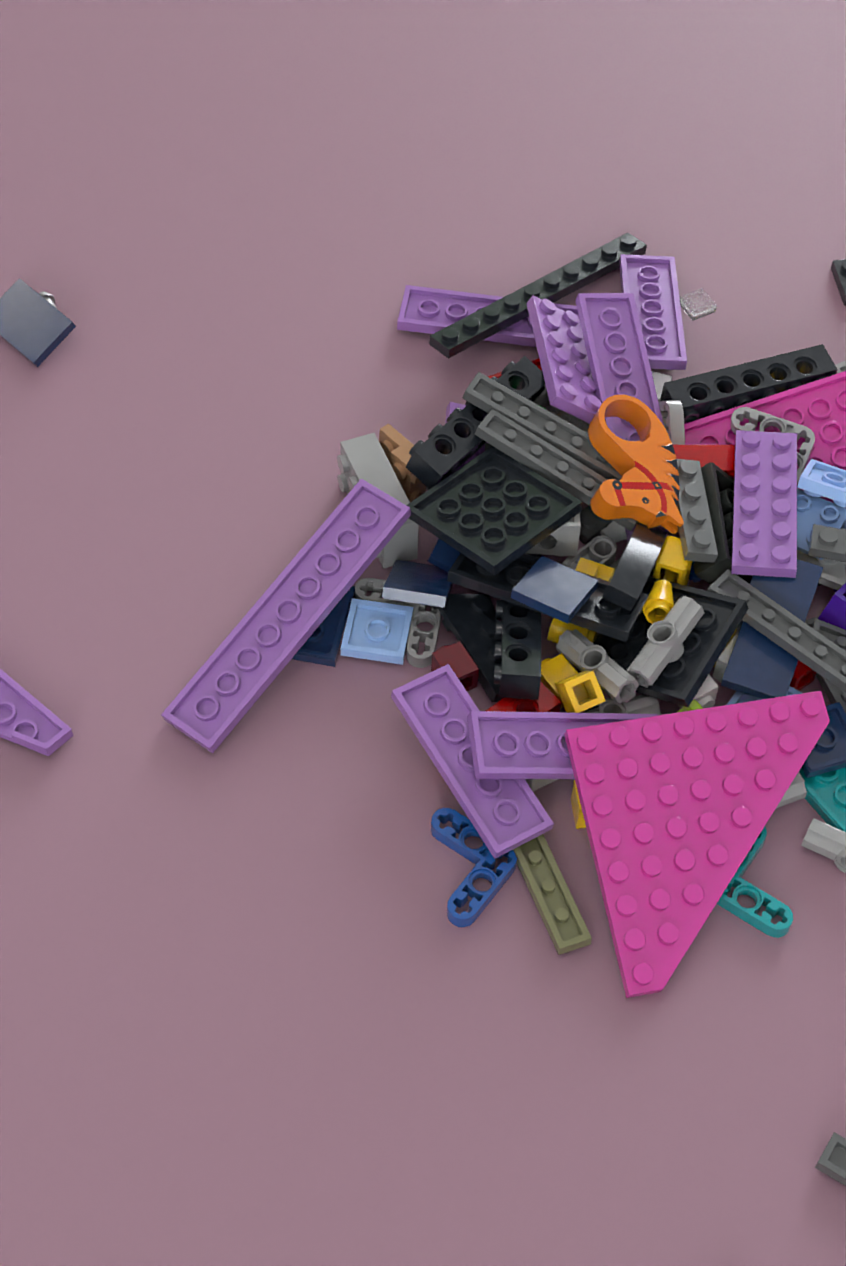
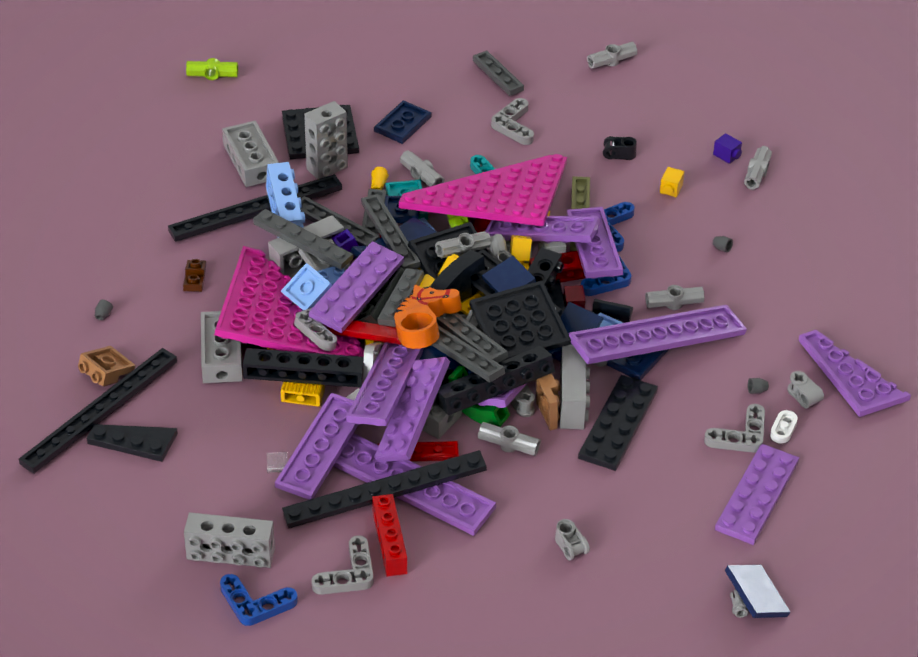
camera: 155 degrees left, 10 degrees down
(39, 634) = (804, 389): none -> light grey piece
(54, 567) = (783, 426): none -> white plate
(65, 462) = (757, 494): none -> medium lavender plate
(102, 539) = (748, 435): none -> light grey beam
(113, 623) = (757, 385): none -> dark grey hose
(258, 1119) = (757, 167): none -> light grey piece
(262, 893) = (723, 243): none -> dark grey hose
(283, 740) = (674, 297): none -> light grey piece
(286, 315) = (570, 539): none -> light grey piece
(294, 493) = (618, 422): none -> black plate
(335, 1147) = (727, 148): none -> dark purple brick
(384, 671) = (617, 311): none -> black panel
(408, 1003) = (672, 182): none -> yellow brick
(415, 760) = (595, 287): none -> blue beam
(421, 415) = (509, 438): none -> light grey piece
(499, 247) = (389, 535): none -> red brick
(507, 209) = (356, 572): none -> light grey beam
(550, 1055) = (621, 148): none -> black piece
(601, 141) = (255, 607): none -> blue beam
(671, 176) = (229, 540): none -> light grey brick
(794, 1059) = (502, 122): none -> light grey beam

